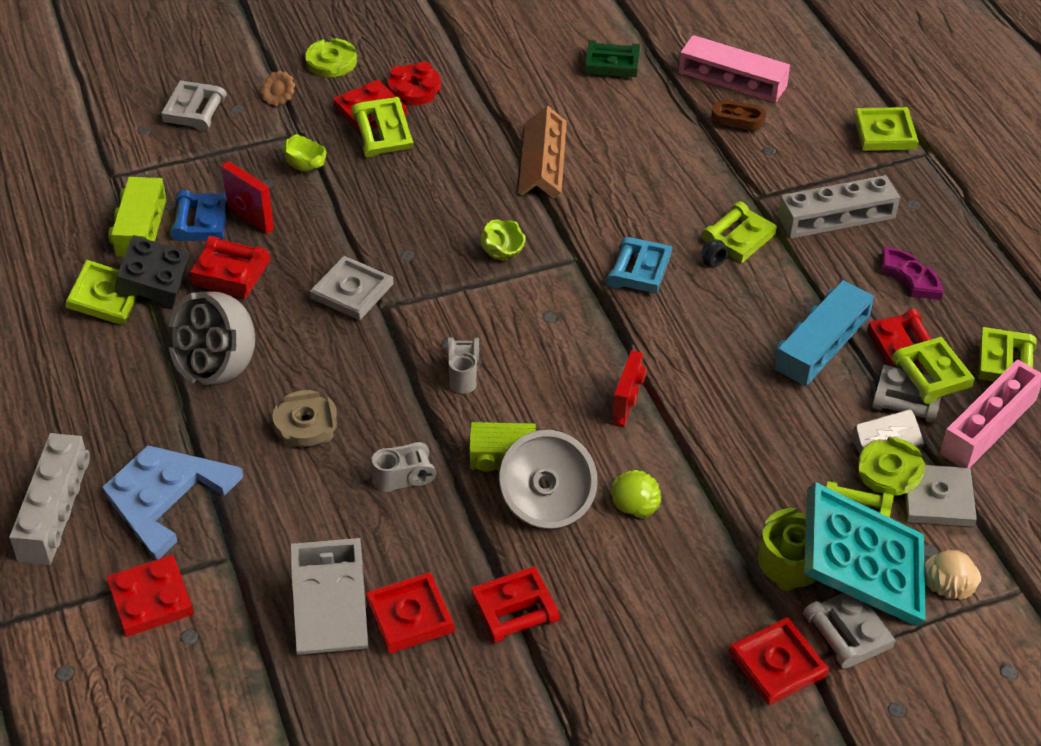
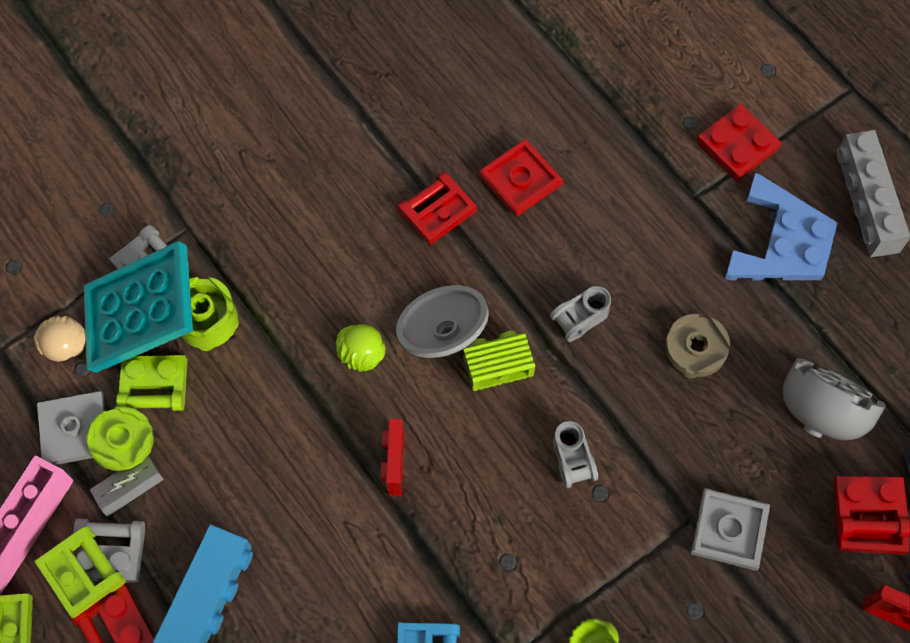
camera: 165 degrees right, 20 degrees up
(329, 596) = (592, 168): light grey slope -> none
(778, 661) = (206, 214): red plate -> none

